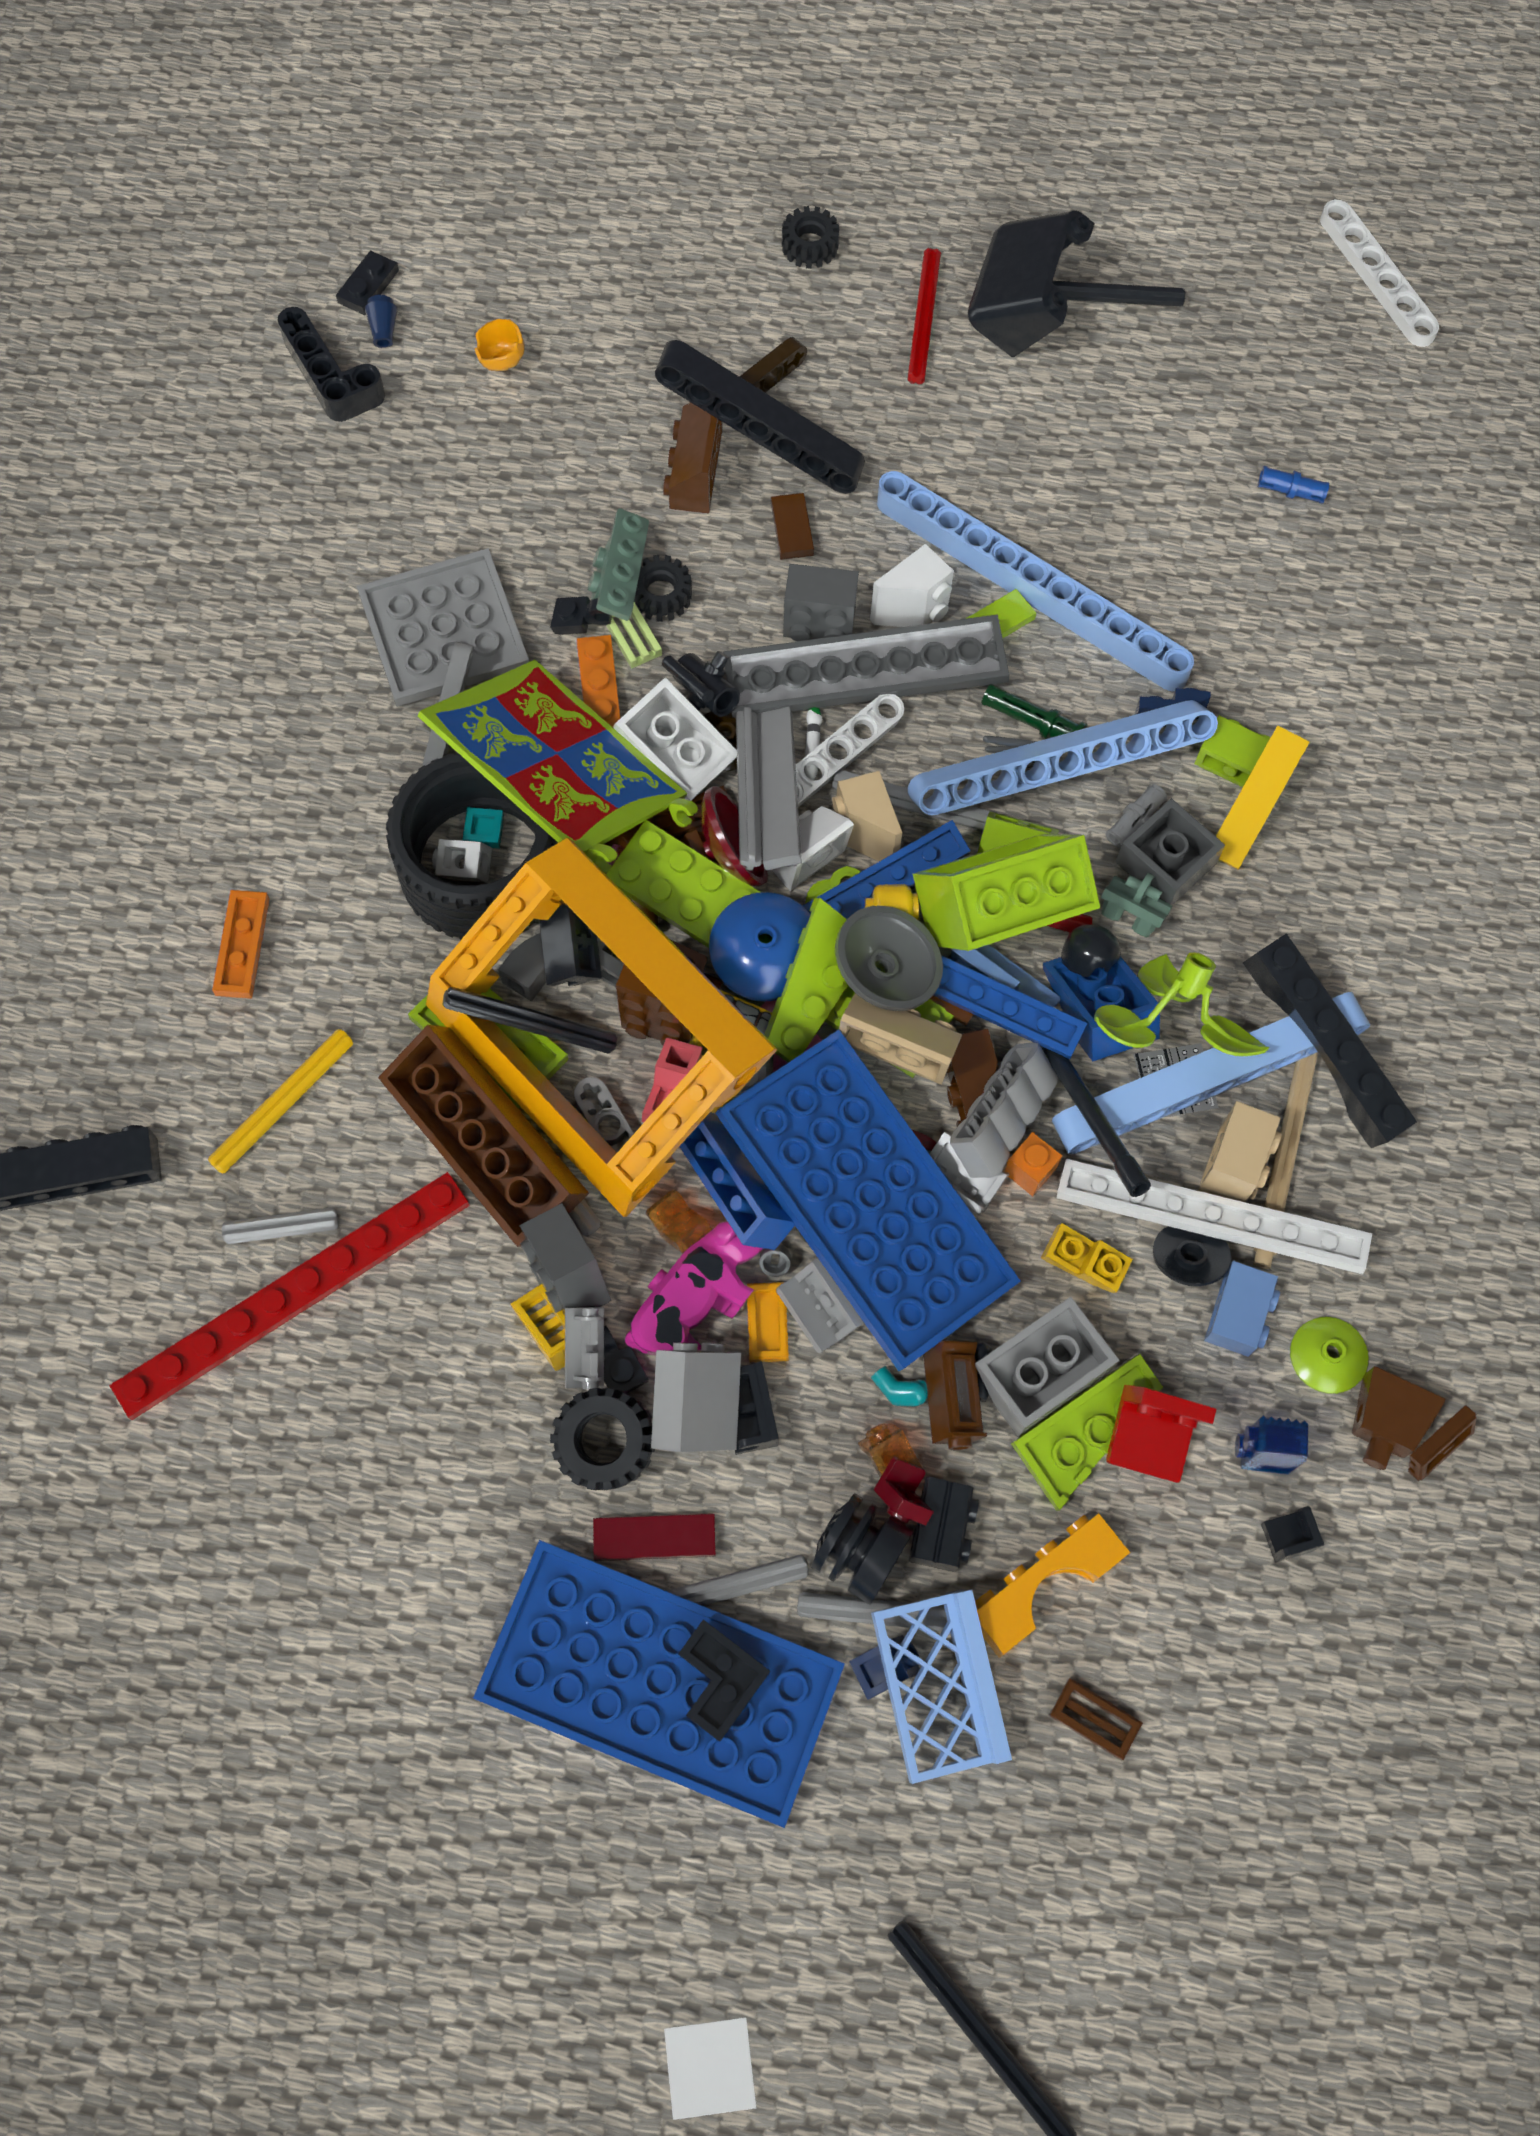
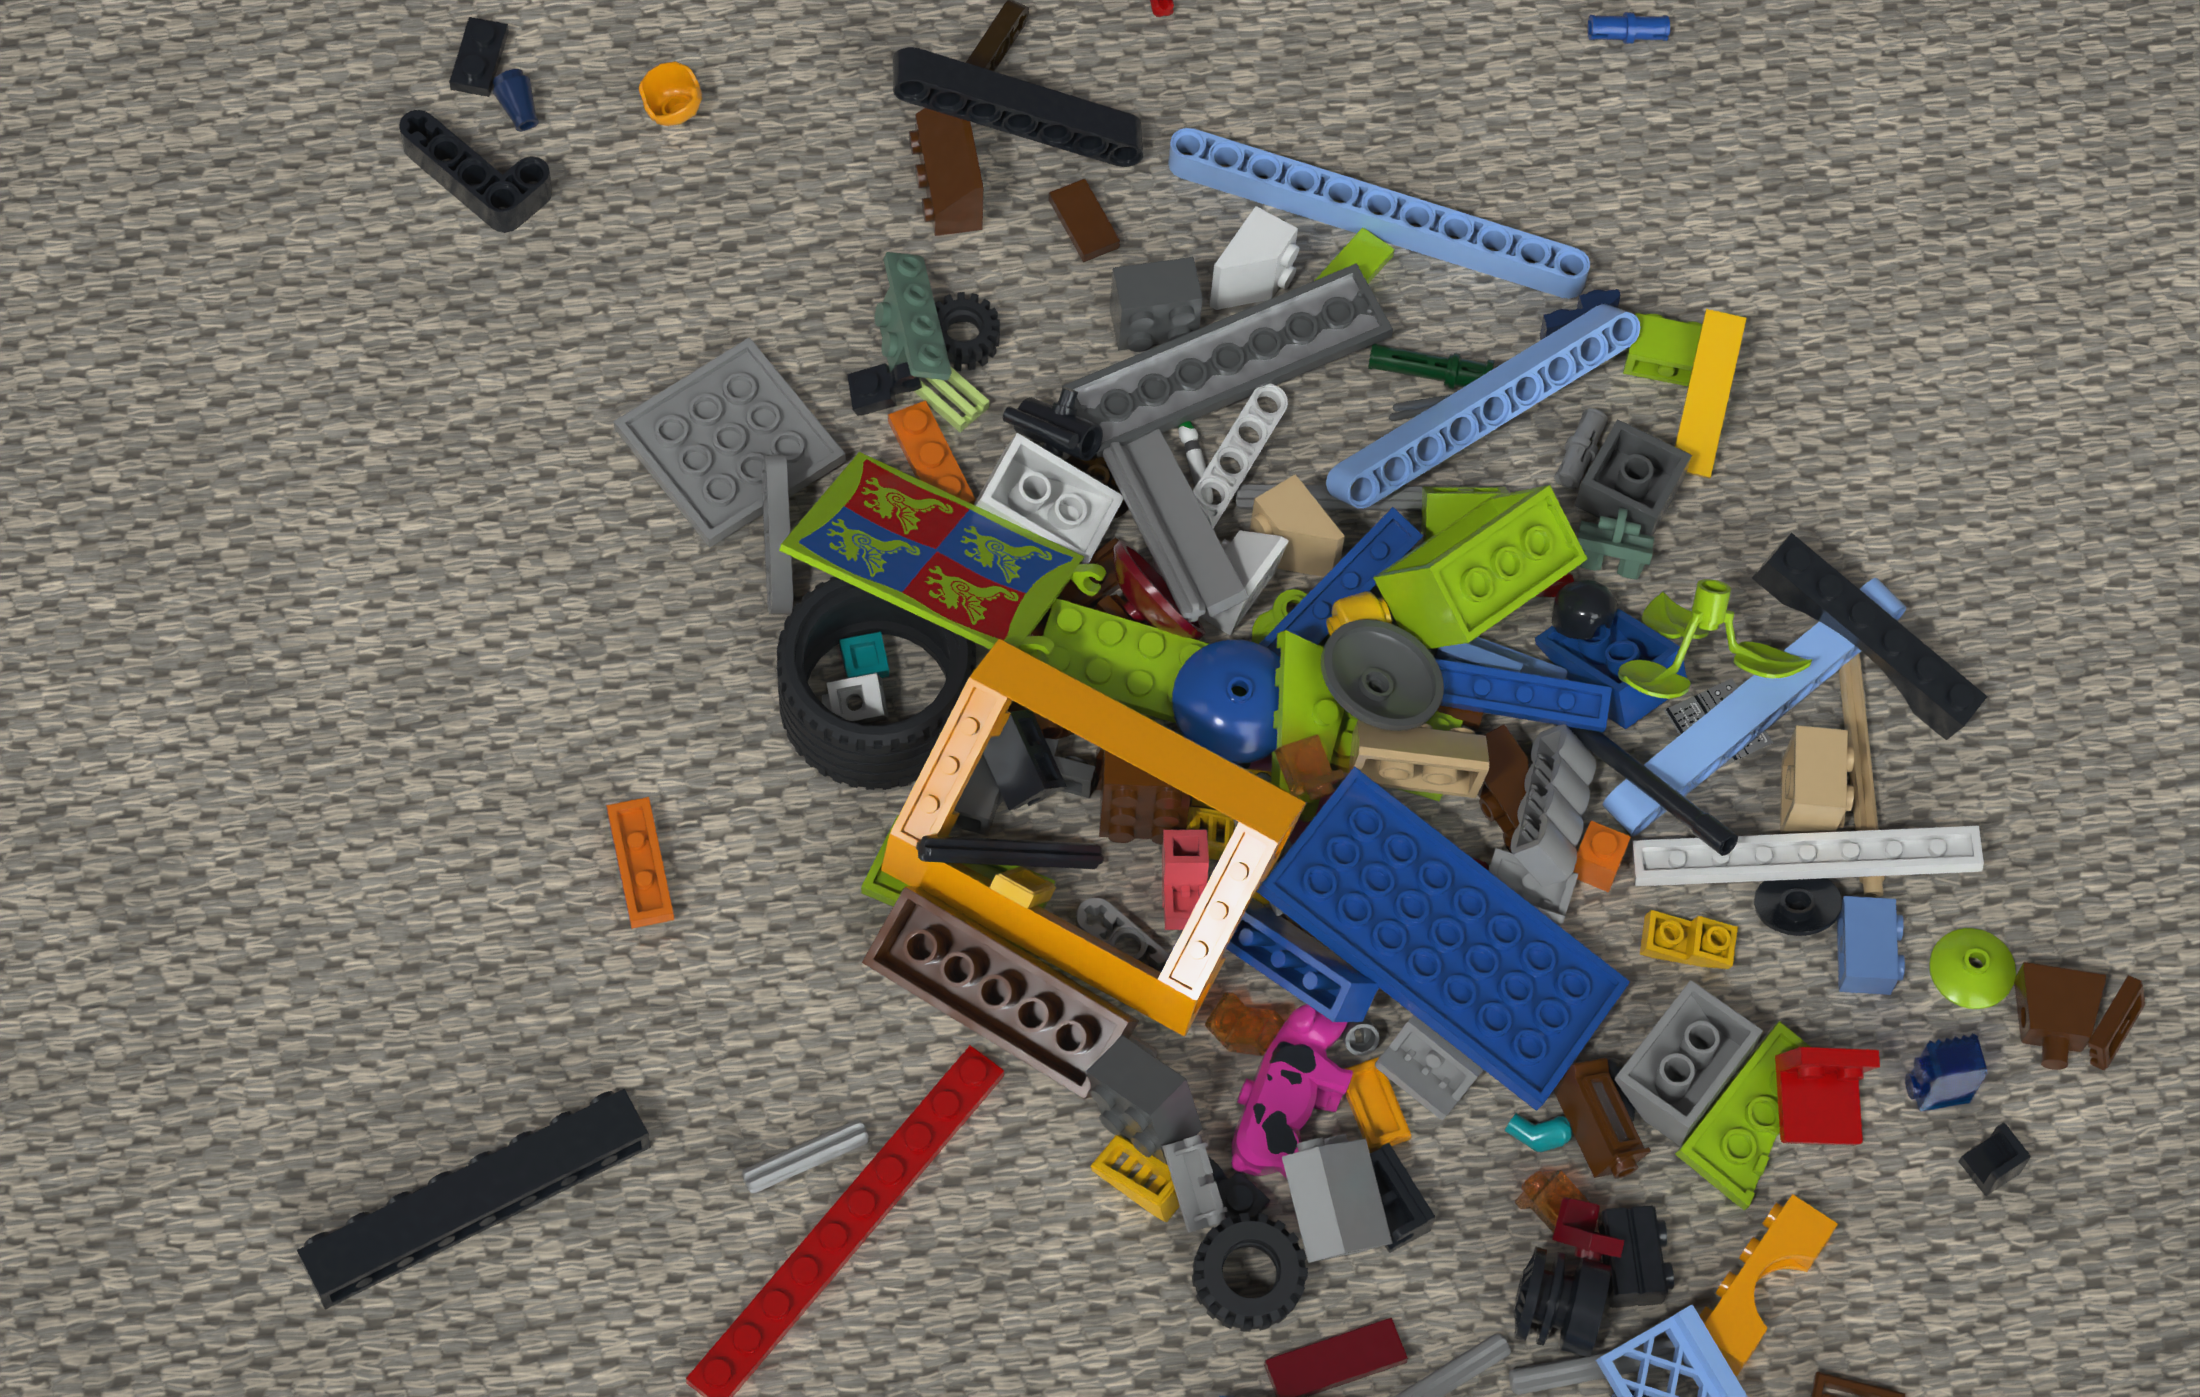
camera: 20 degrees left, 5 degrees down
(279, 1102) = (752, 1022): yellow axle -> none
(529, 1053) = (1023, 887): none -> yellow tile
(798, 1020) = (1307, 768): none -> clear orange bracket

